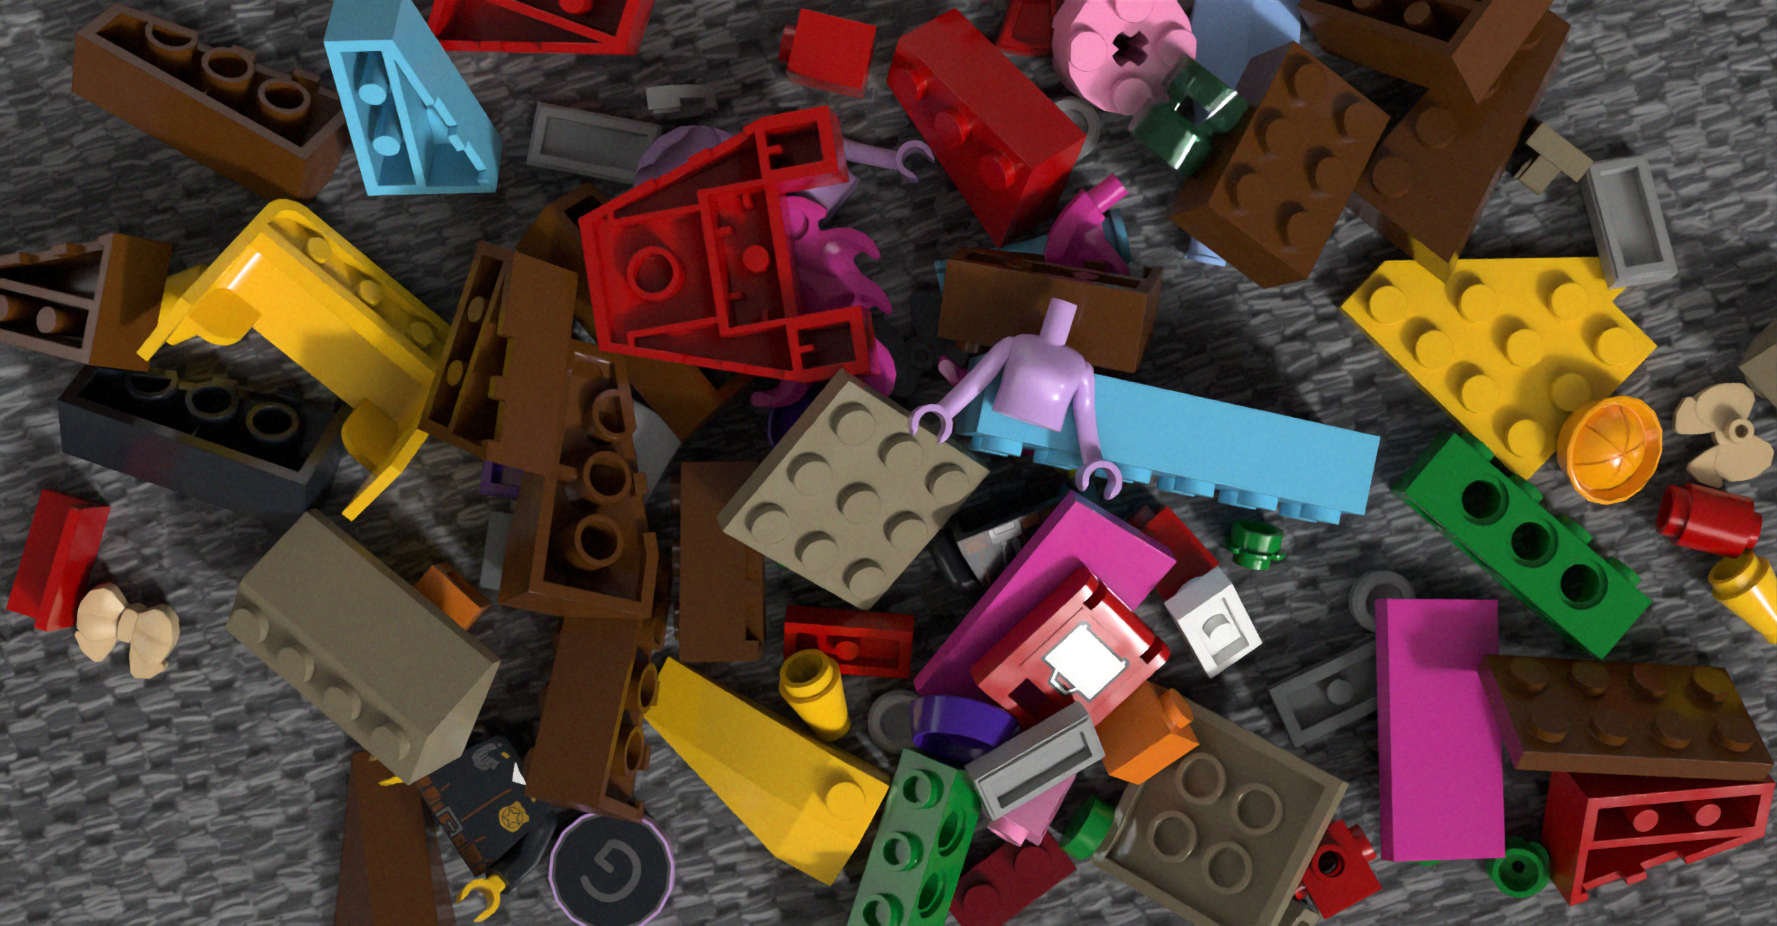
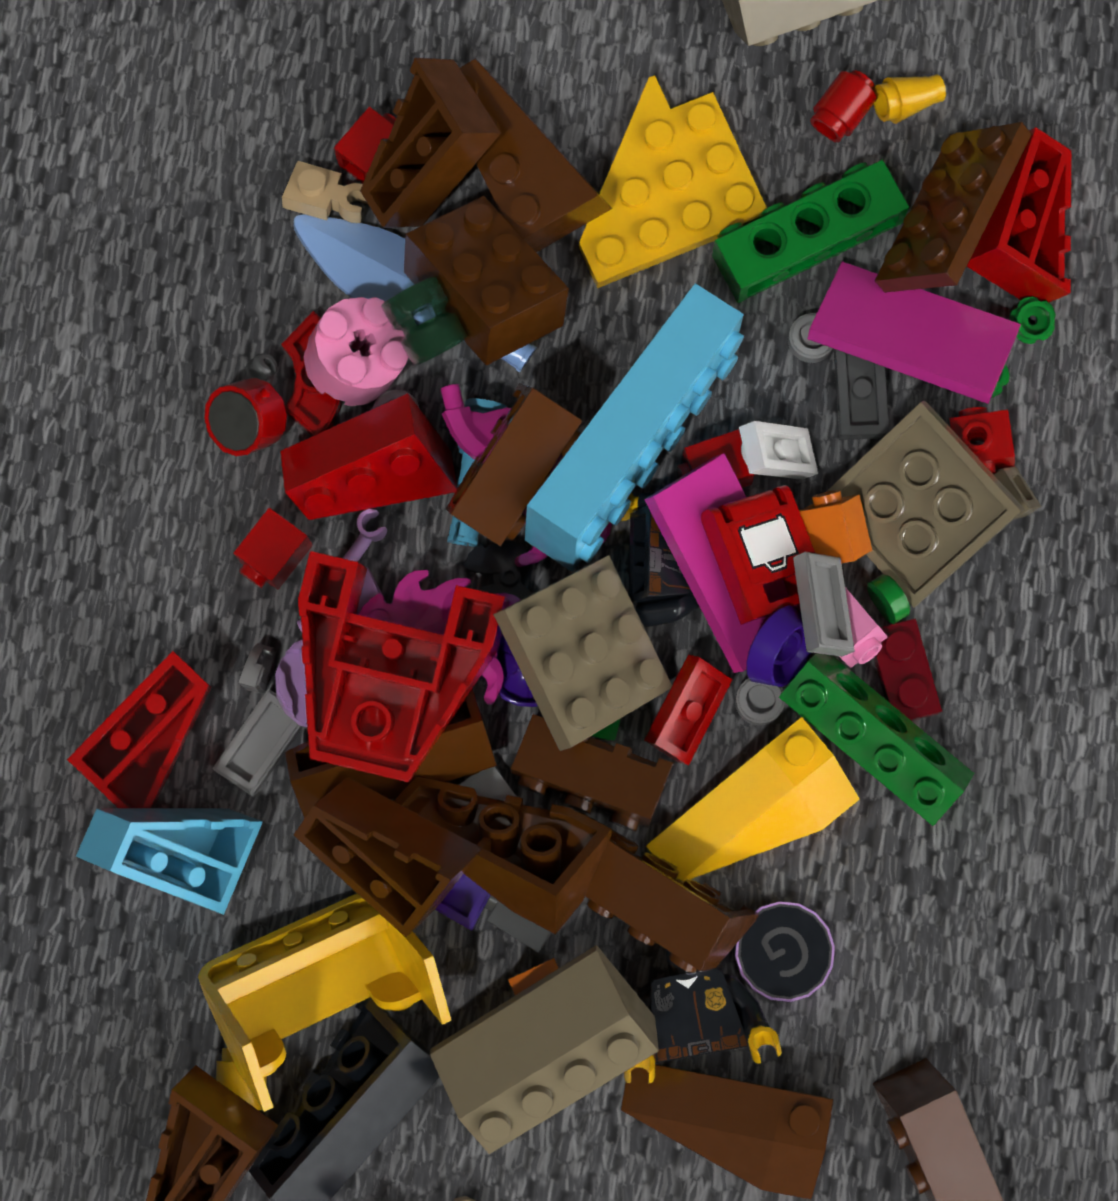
camera: 65 degrees left, 10 degrees down
(213, 104) = (107, 999): reddish brown wedge -> none
(815, 691) = (714, 745): yellow cone -> none
(1036, 389) = (566, 485): lavender piece -> none
(1254, 544) = (736, 405): green plate -> none
(1549, 157) = (556, 109): dark tan tile -> none
(1610, 448) = (768, 148): light orange hat -> none
(1627, 222) = (621, 78): light grey tile -> none
(1723, 413) = (776, 68): tan piece -> none

